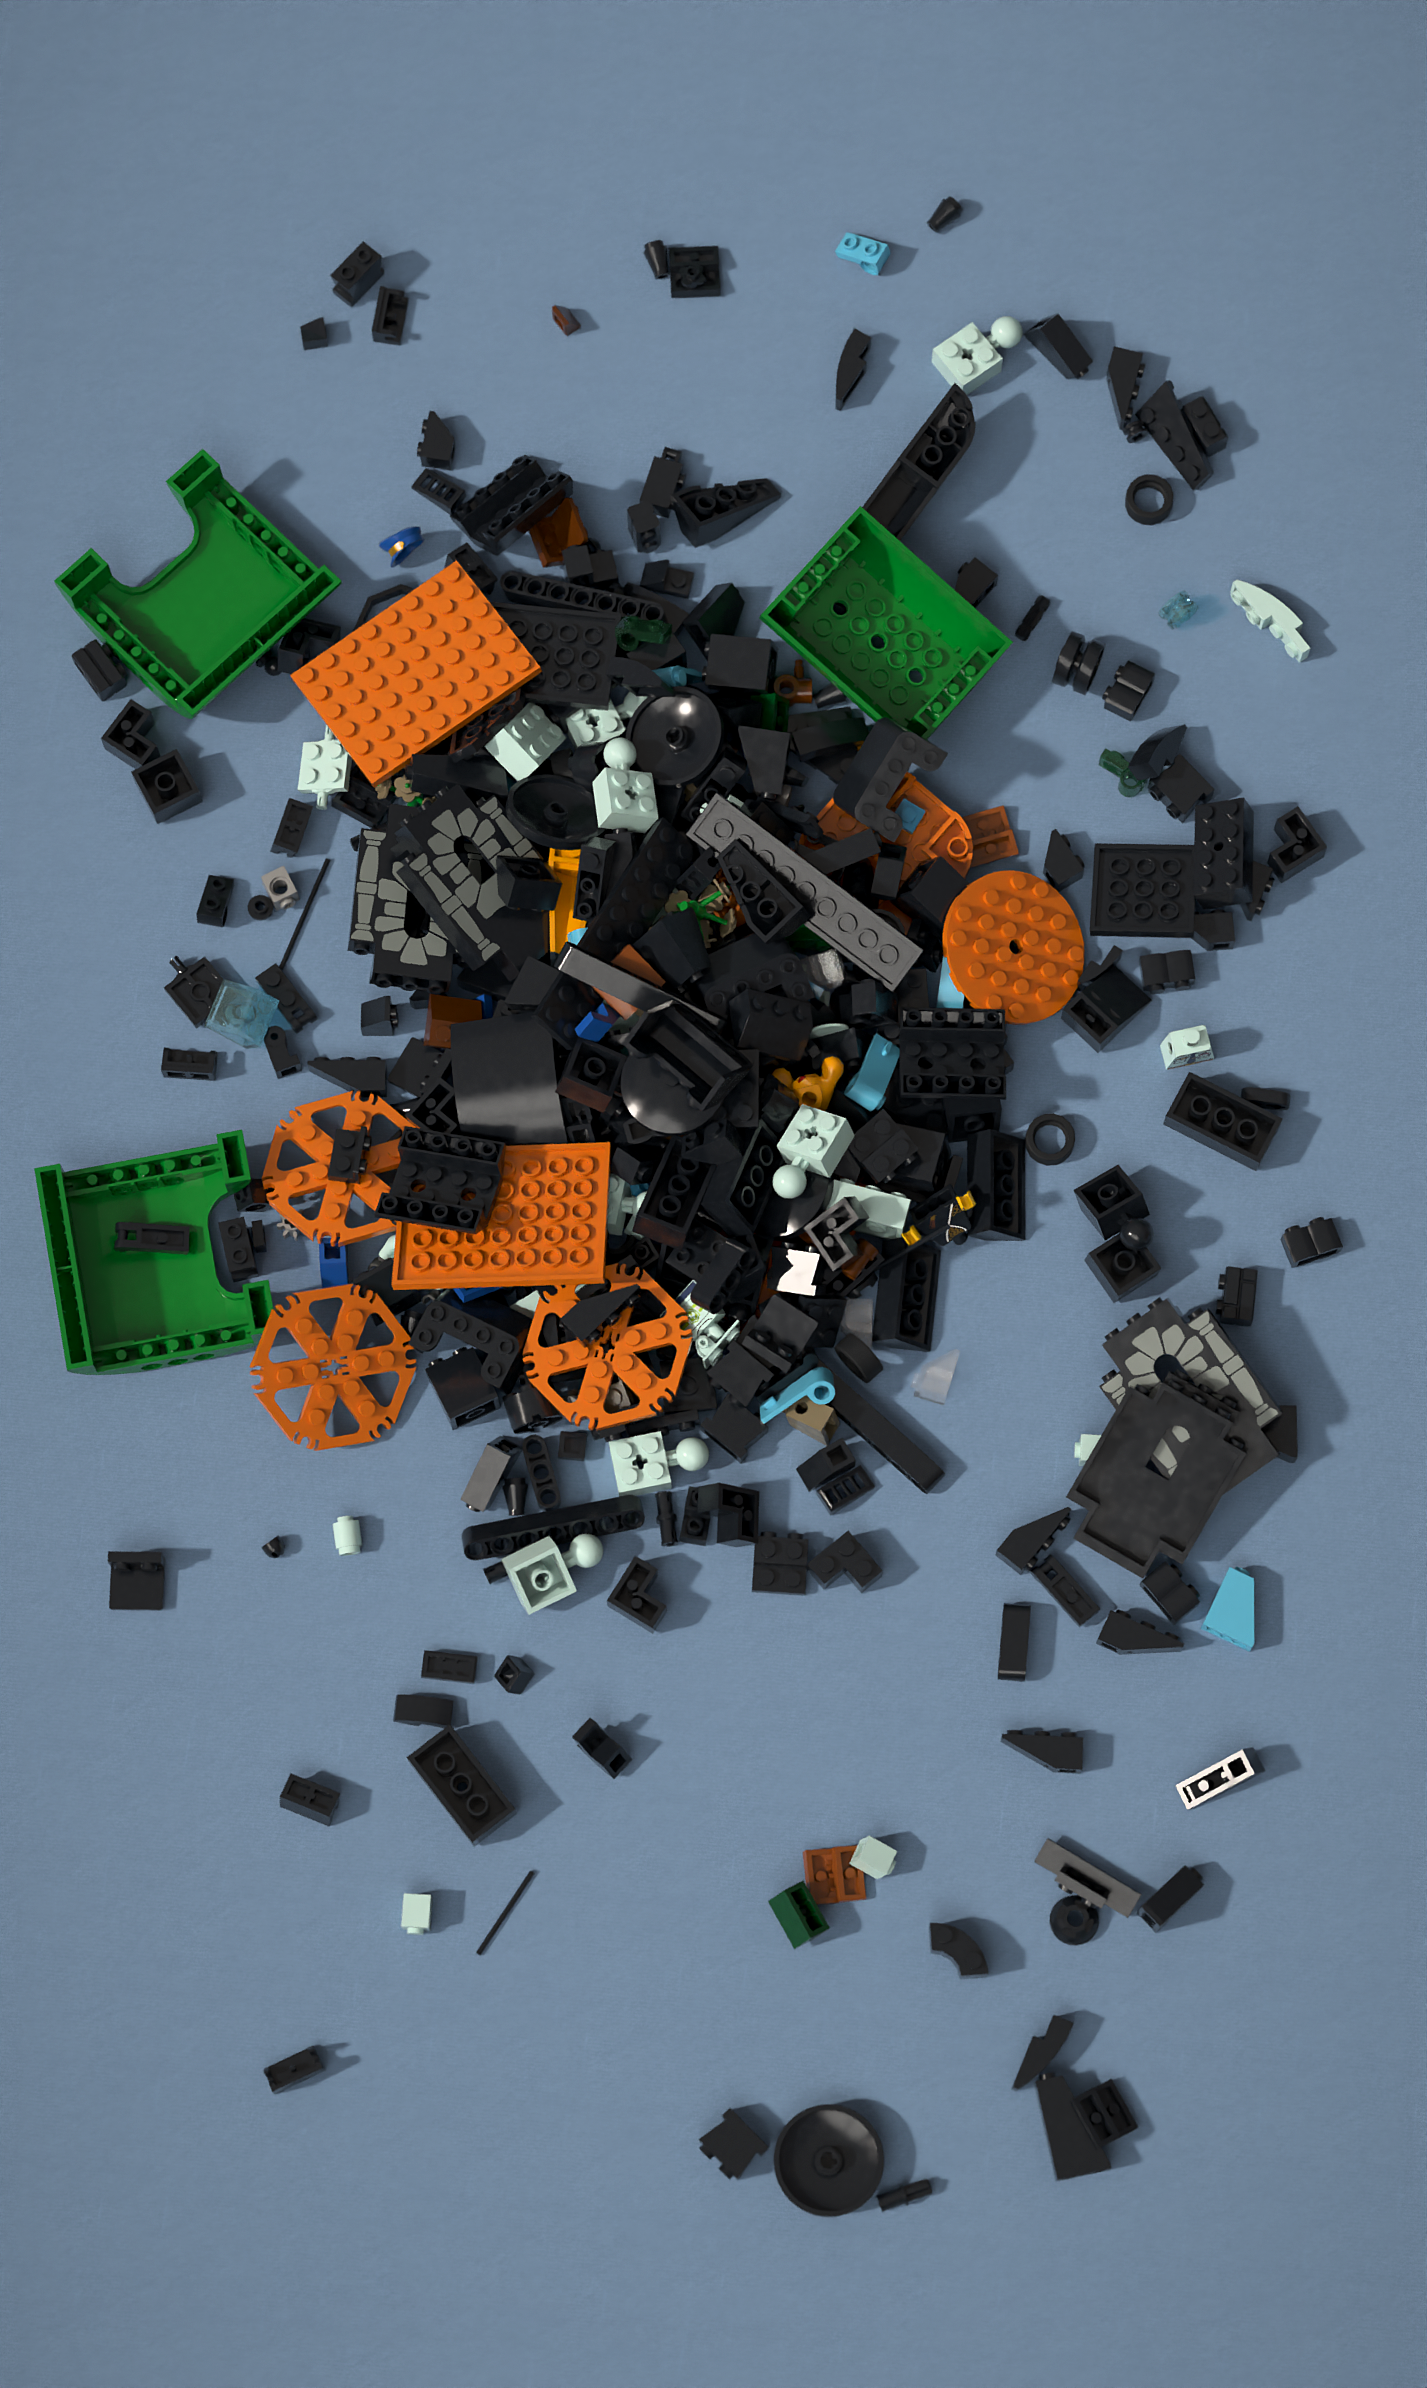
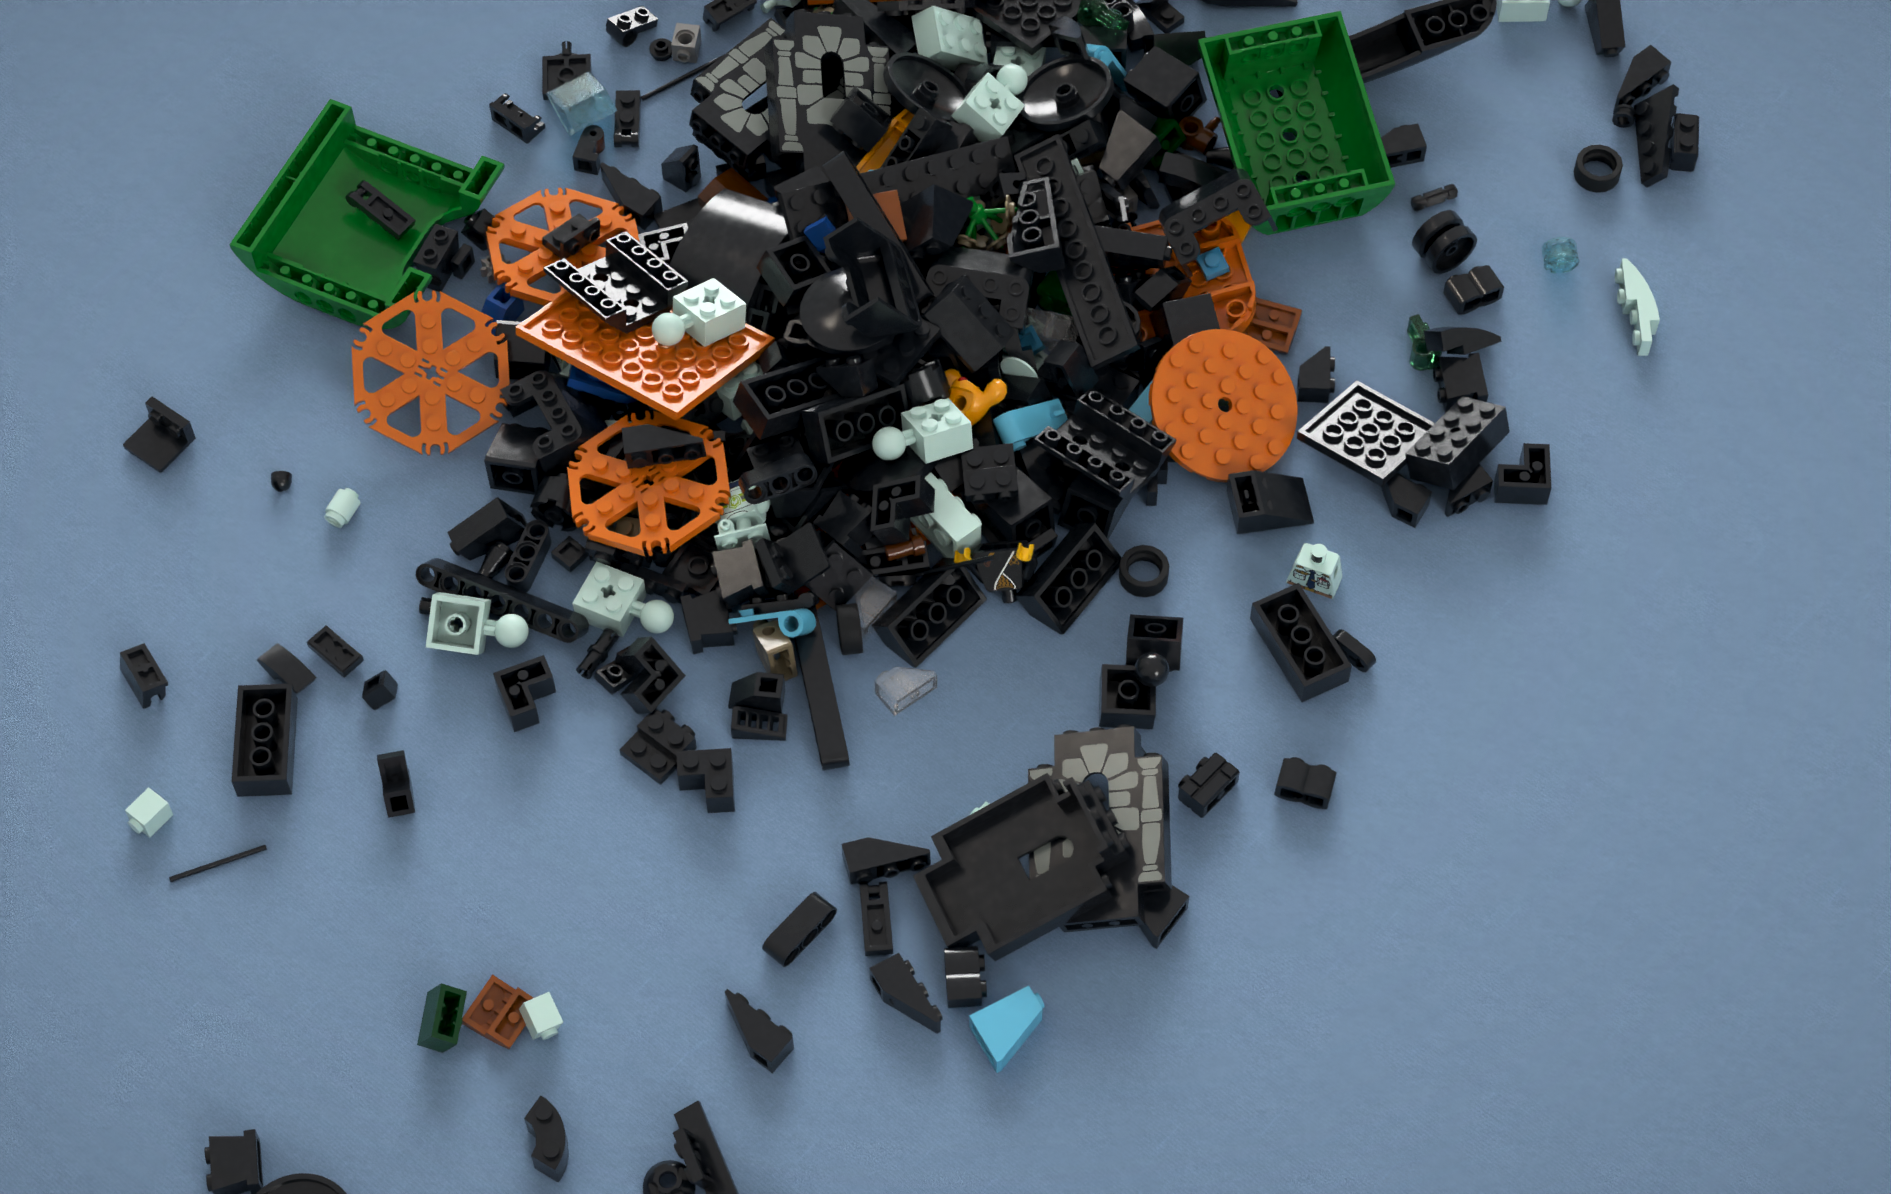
camera: 35 degrees right, 15 degrees down
(539, 1163) = (704, 312): none -> light aqua brick
(1094, 970) = (1303, 468): black slope -> none
(1167, 971) = (1343, 506): black brick -> none
(1220, 1777) = (888, 1153): slope -> none

